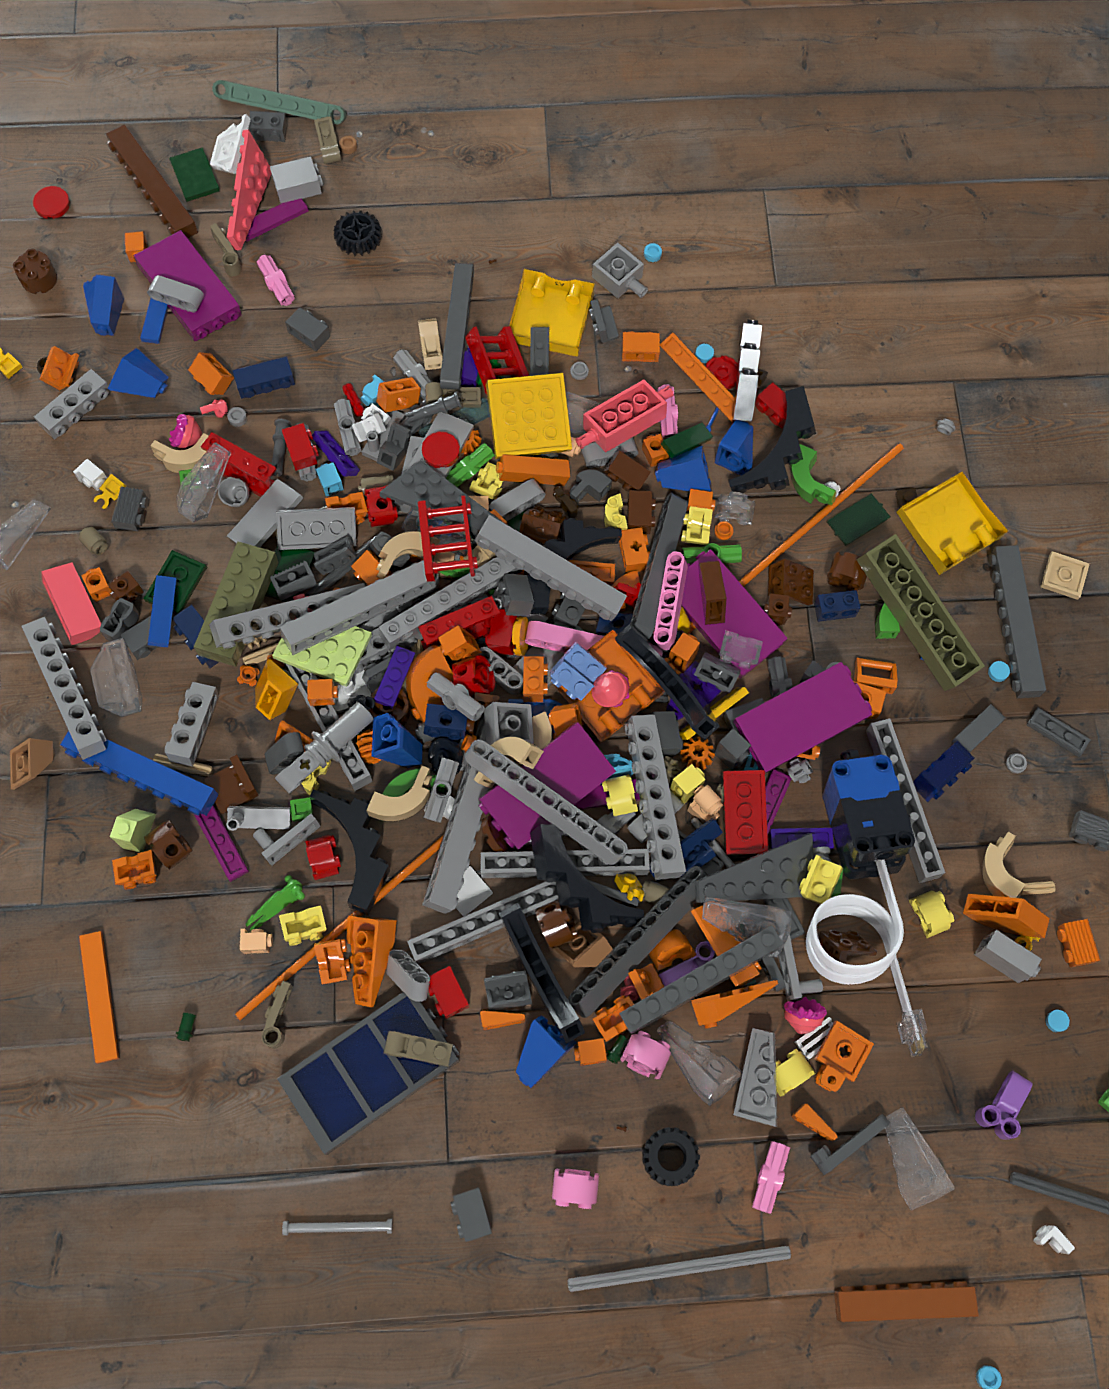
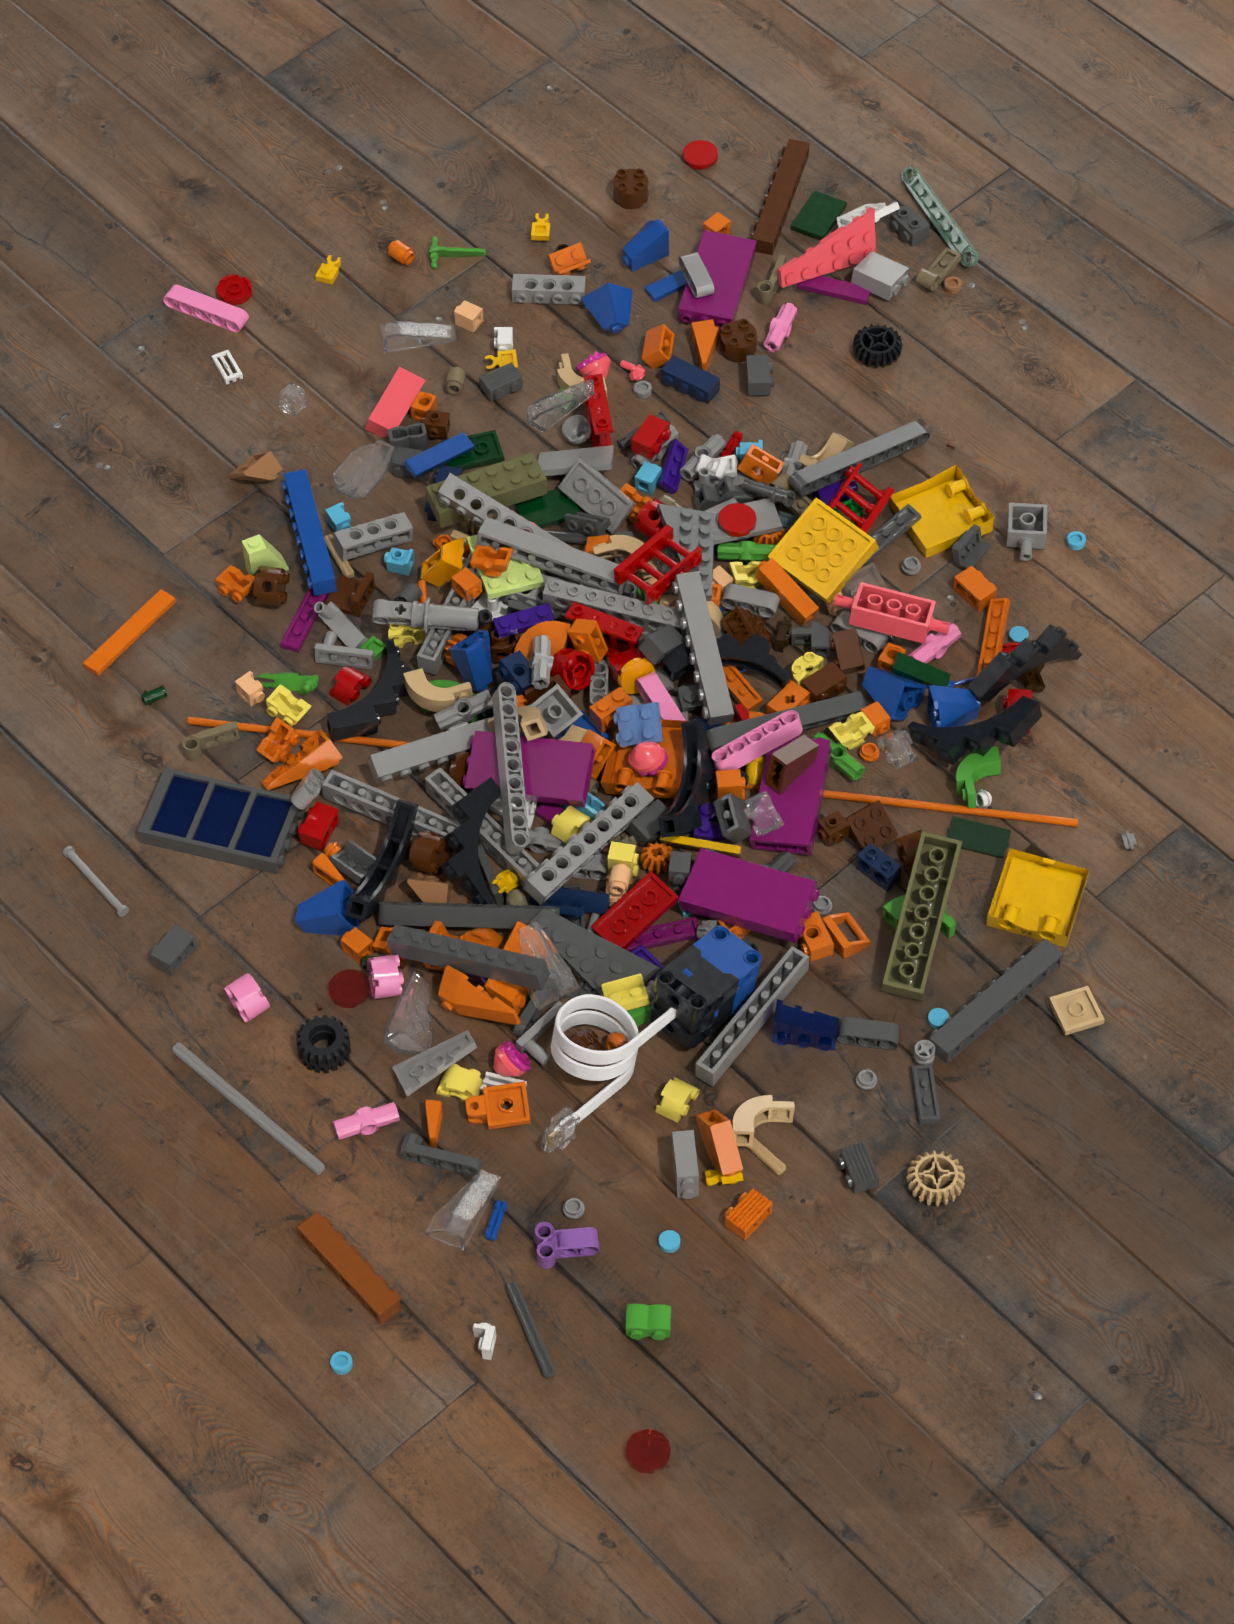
camera: 55 degrees right, 15 degrees down
(38, 481) = (468, 316): none -> light nougat brick
(87, 744) = (326, 443): light grey brick -> none
(147, 737) = (337, 517): none -> medium azure brick
(235, 338) = (705, 341): none -> orange slope
(239, 725) = (399, 561): none -> medium azure brick
(261, 316) = (738, 340): none -> reddish brown brick
(293, 580) = (540, 511): dark grey brick -> none
(323, 655) = (491, 561): none -> orange cylinder
(418, 1048) = (260, 830): dark tan plate -> none
(472, 892) = (409, 789): white sticker -> none
(479, 999) = (332, 849): none -> orange plate
(625, 1090) = (349, 988): none -> clear red tile
(850, 920) = (615, 1040): none -> orange plate
(942, 1143) = (495, 1220): none -> blue axle
(975, 1072) = (573, 1208): none -> light grey plate
(1029, 703) = (925, 1047): none -> light grey wheel

